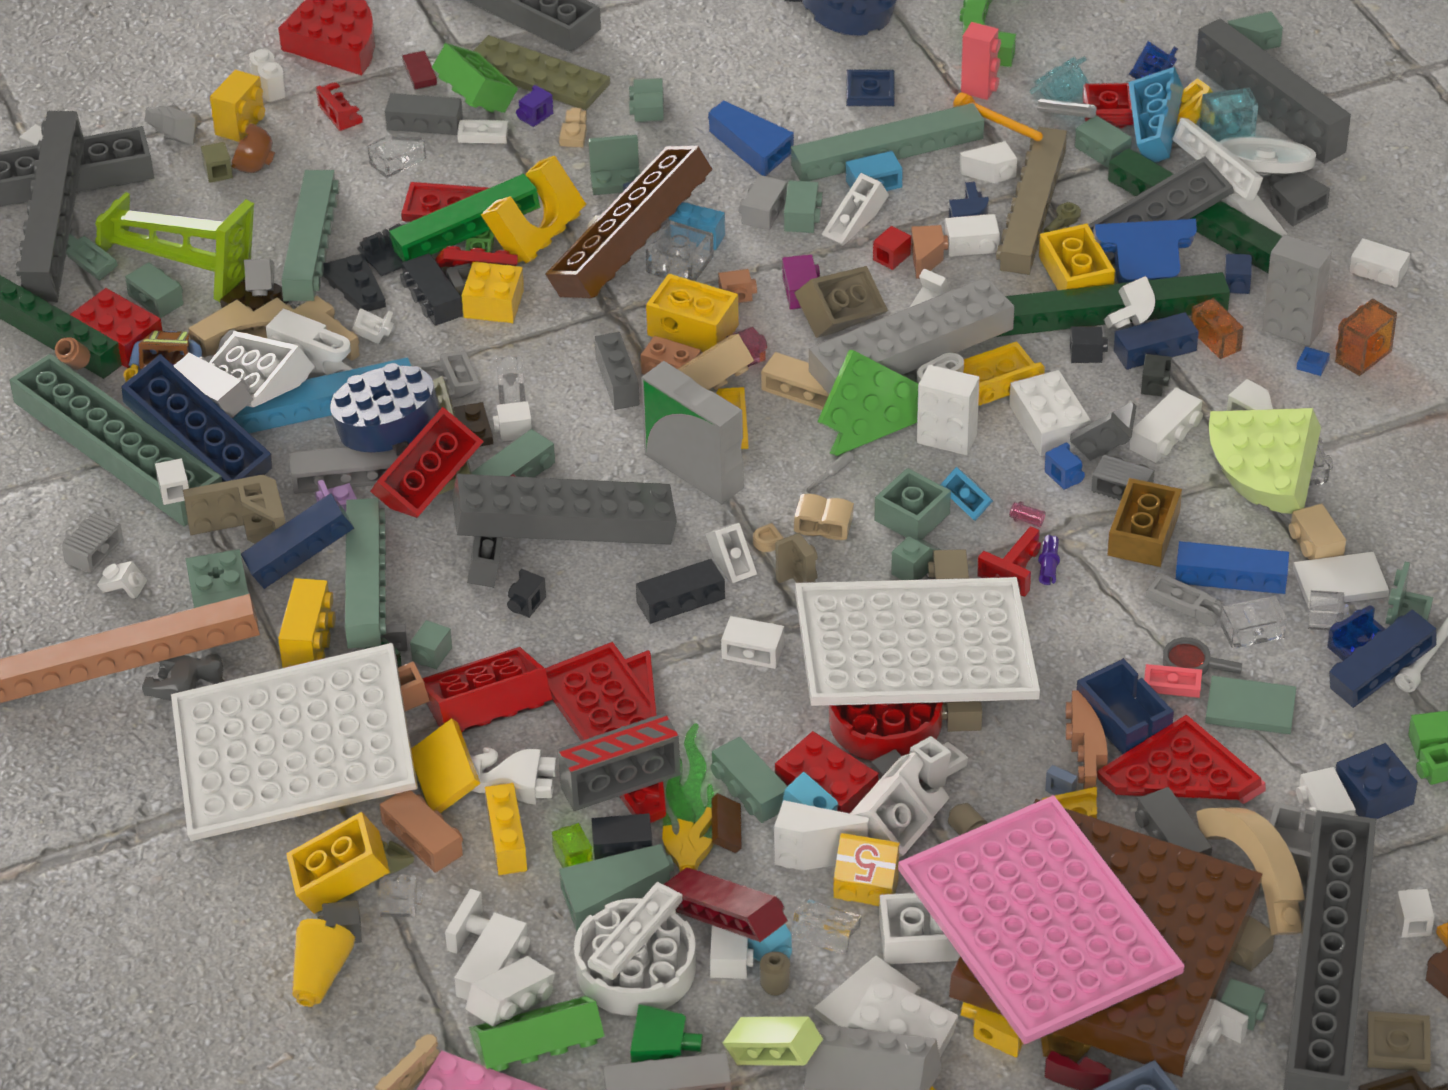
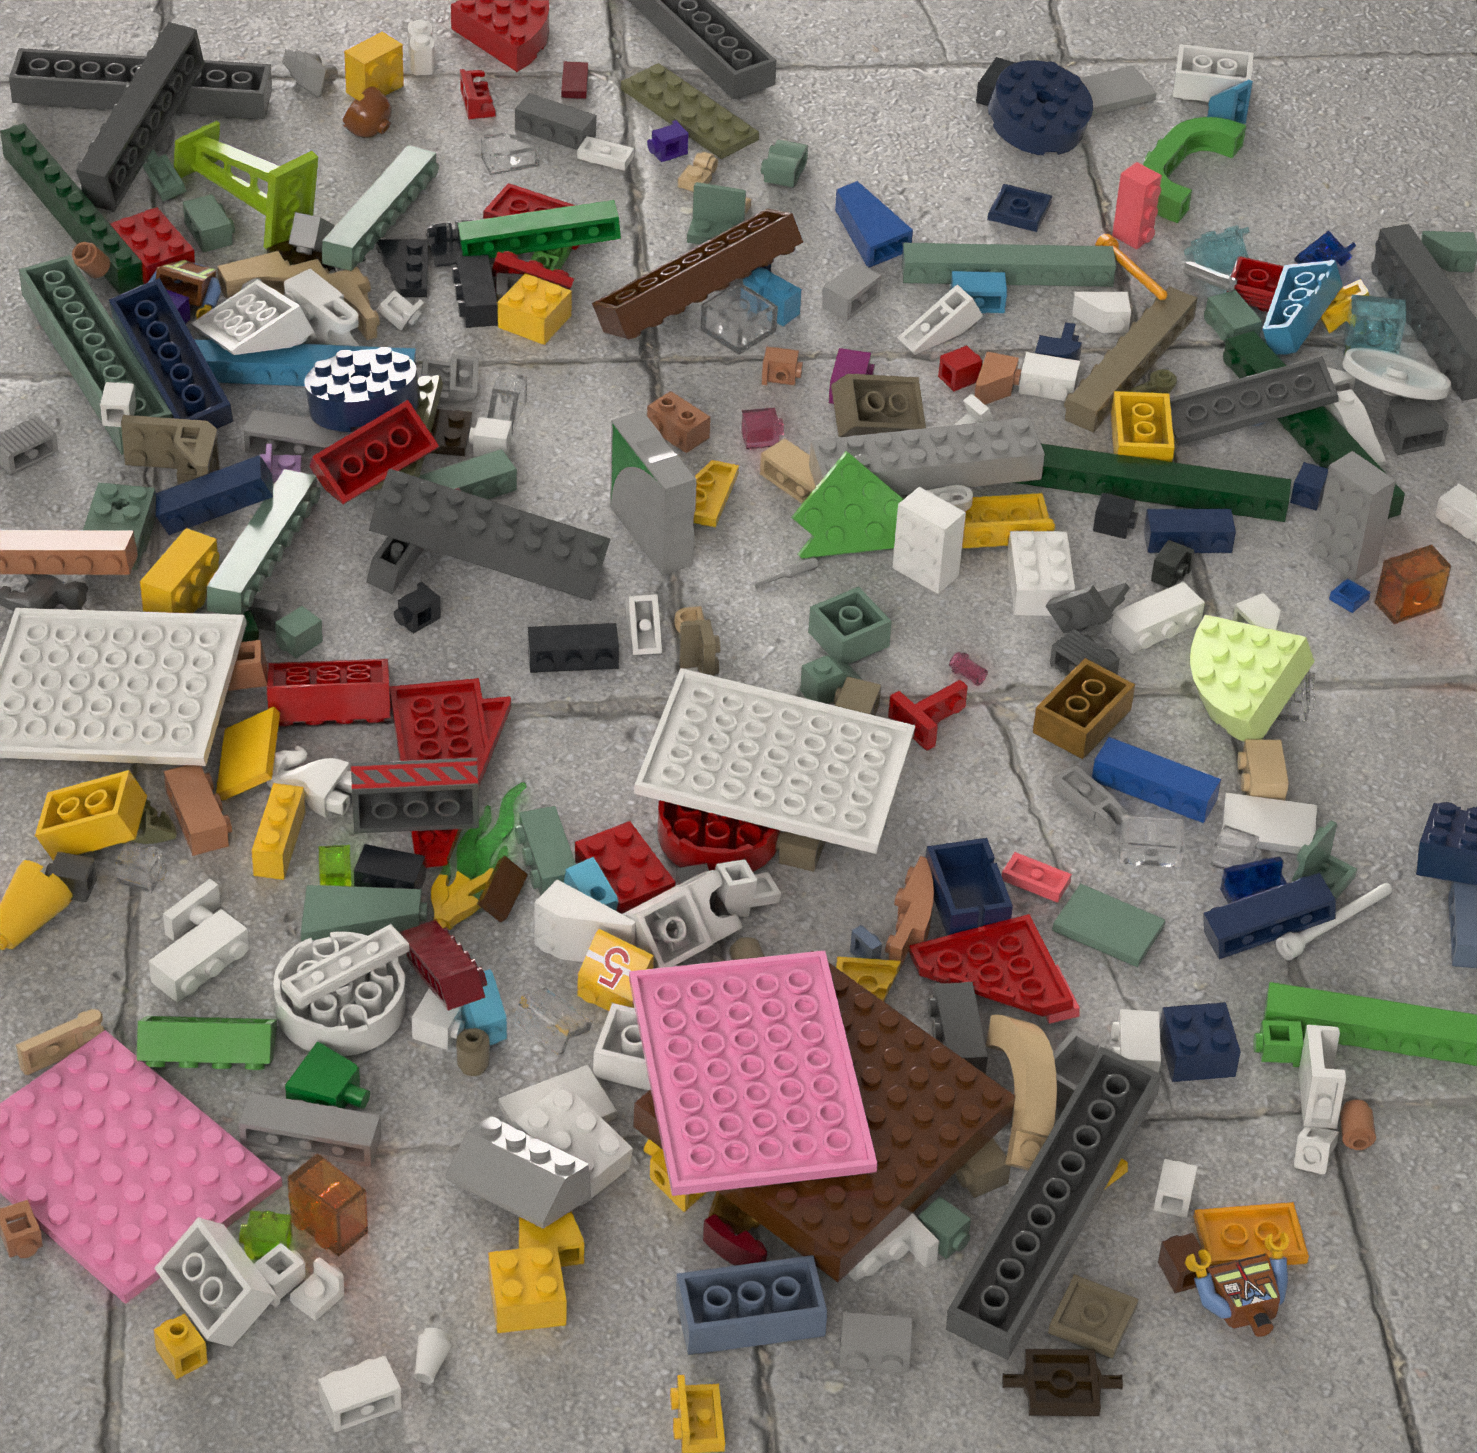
camera: 15 degrees right, 0 degrees up
(123, 576) = (37, 486): white bracket -> none
(216, 162) = (330, 117): olive brick -> none
(220, 386) = (205, 323): brick -> none
(474, 78) = (618, 99): bright green brick -> none
(510, 991) = (195, 990): white brick -> none
(560, 206) = (643, 241): yellow arch -> none
(617, 370) = (619, 403): dark grey brick -> none
(691, 313) = (719, 380): yellow piece -> none
(719, 363) = (711, 437): tan brick -> none
(752, 642) = (620, 718): white brick -> none
(773, 1040) = (431, 1117): yellowish green brick -> none
(801, 206) = (888, 305): sand green brick -> none
(823, 517) = (754, 613): tan brick -> none
(967, 493) = (910, 628): dark azure slope -> none
(1049, 560) = (967, 720): dark purple axle -> none
(1064, 466) = (1029, 630): blue brick -> none
(1138, 302) = (1183, 490): white brick -> none
(1146, 247) = (1220, 433): blue brick -> none
(1194, 654) = (1075, 858): piece -> none
(1200, 144) = (1344, 374): white plate -> none
(1217, 328) = (1259, 535): clear orange brick -> none

